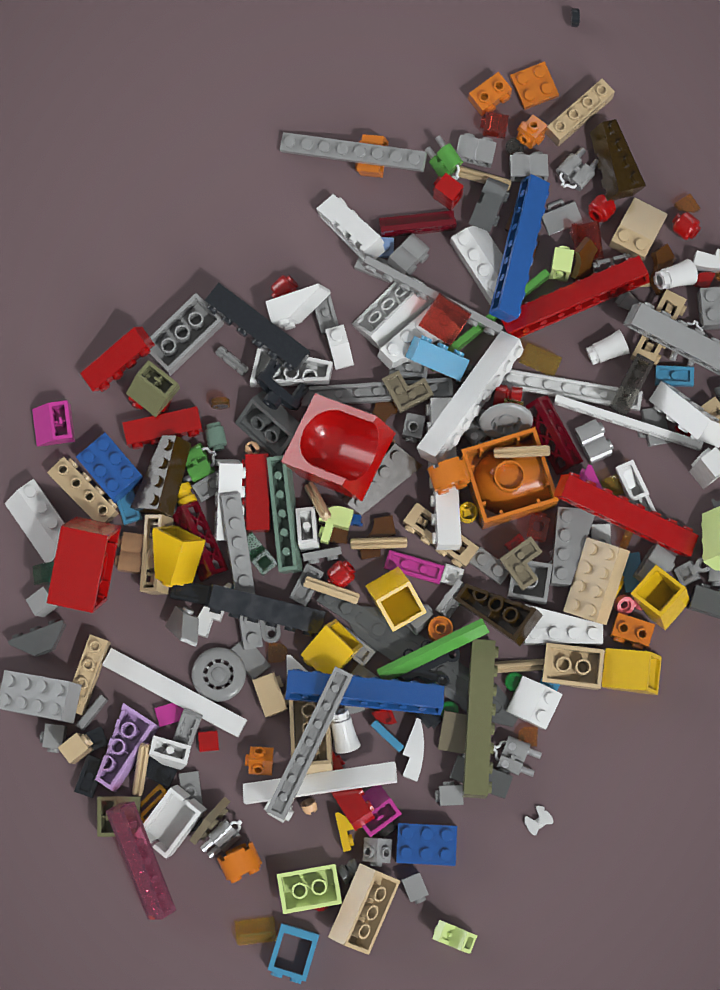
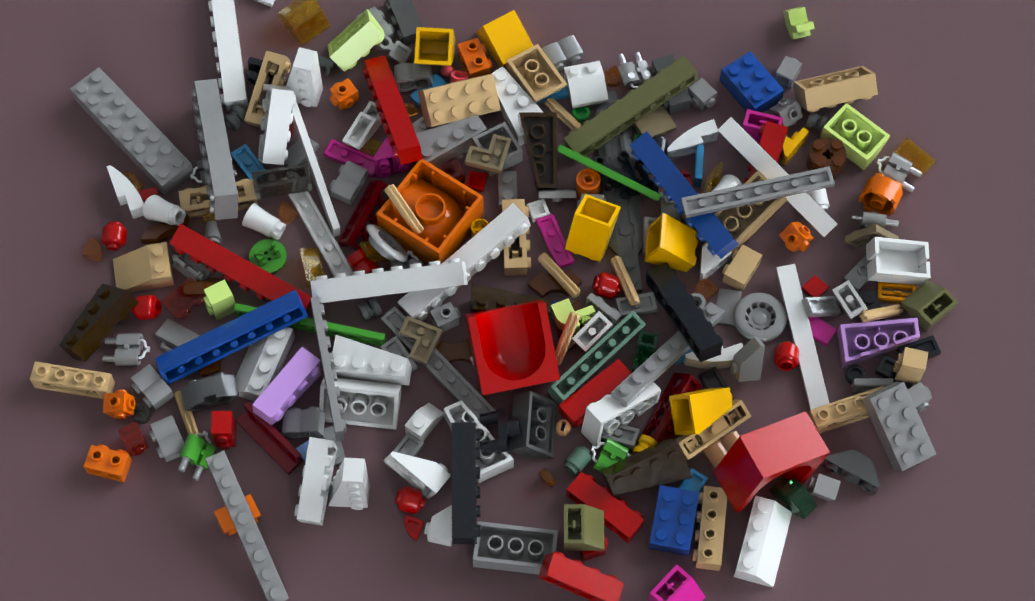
camera: 130 degrees left, 15 degrees down
(112, 709) = (854, 371): none -> black tile
(141, 860) = (945, 257): clear pink brick -> none
(169, 666) = (786, 356): none -> red head
(231, 360) = (504, 492): light grey axle -> none
(245, 291) = (440, 527): none -> white slope
(254, 898) = (897, 169): none -> light grey piece
(263, 278) = (413, 526): none -> red tile
(298, 932) = (892, 126): dark azure window -> none
(307, 836) = (827, 153): none -> reddish brown brick
(322, 247) = (350, 485): none -> white wedge
(366, 741) = (713, 178): none -> clear yellow slope
(437, 357) = (376, 329): dark azure brick -> none
(443, 258) = (288, 386): none -> lavender wedge
(445, 319) = (340, 342): clear red tile -> none
(449, 474) = (466, 244): orange brick -> none
(534, 85) = (72, 436): orange plate -> none
(544, 818) = (661, 26): white piece -> none
(576, 341) = (275, 251): none -> bright green plate
(581, 708) = (564, 52): none -> light grey brick
(604, 374) = (286, 213): none -> clear orange tile
(606, 467) = (342, 153): none -> dark pink tile
(676, 502) = (344, 94): none -> orange brick

